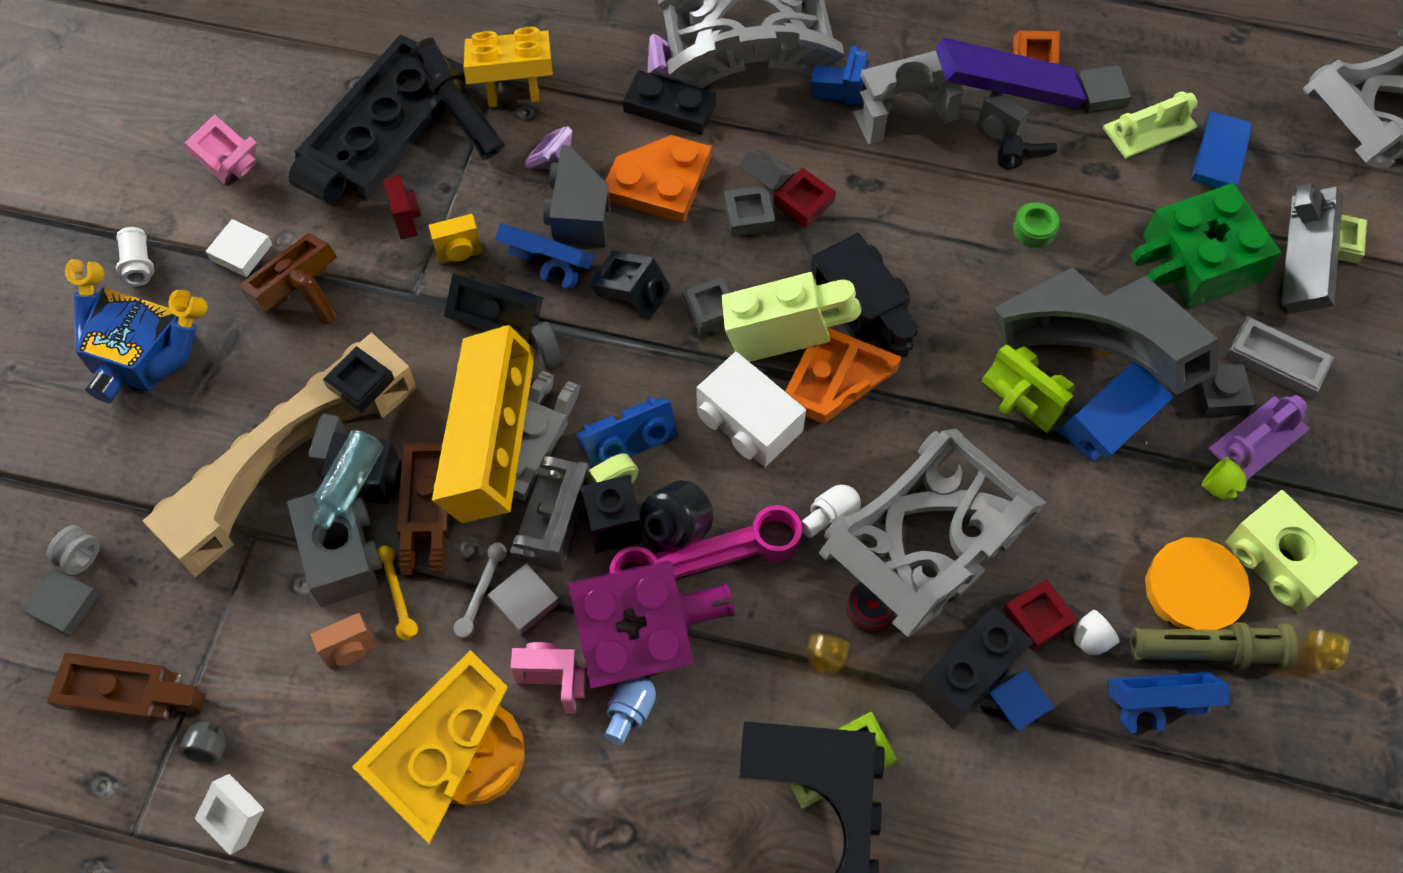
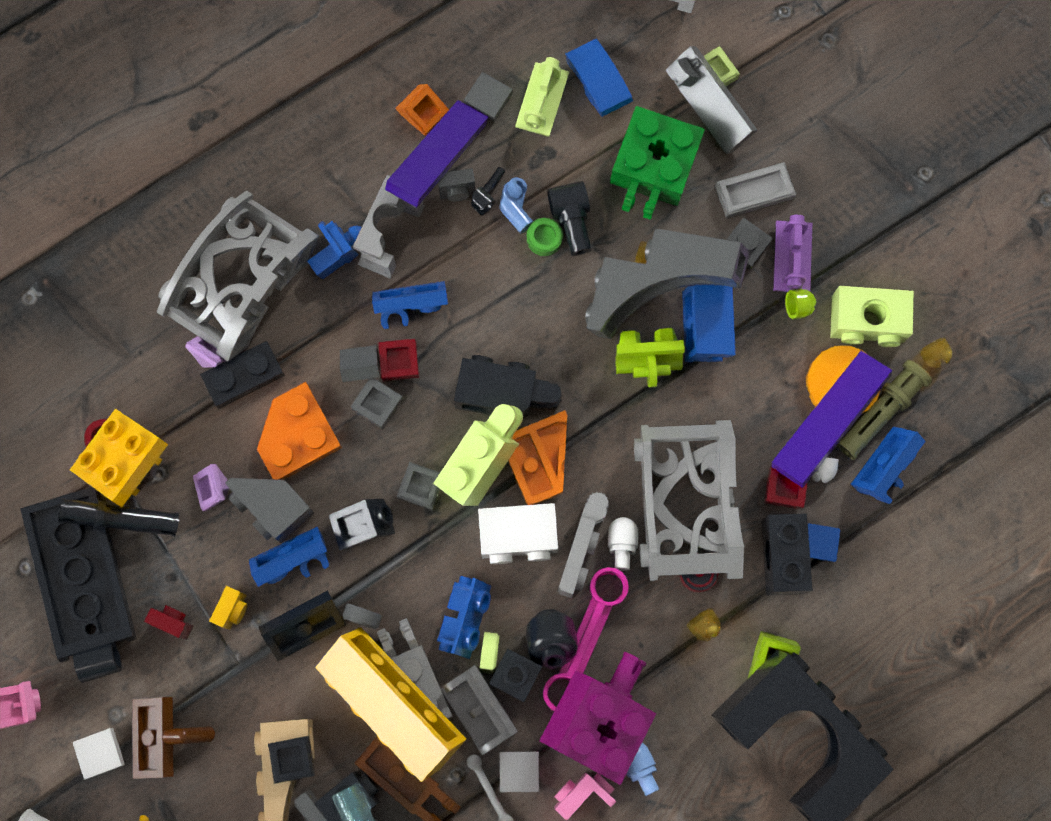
camera: 50 degrees left, 15 degrees up
(794, 472) = (584, 542): none -> light grey hinge
(880, 173) = (423, 297): none -> blue plate
(1038, 175) = (512, 203): none -> medium blue arm
(1082, 218) = (570, 206): none -> black pin
(1150, 593) = (831, 419): none -> dark purple tile

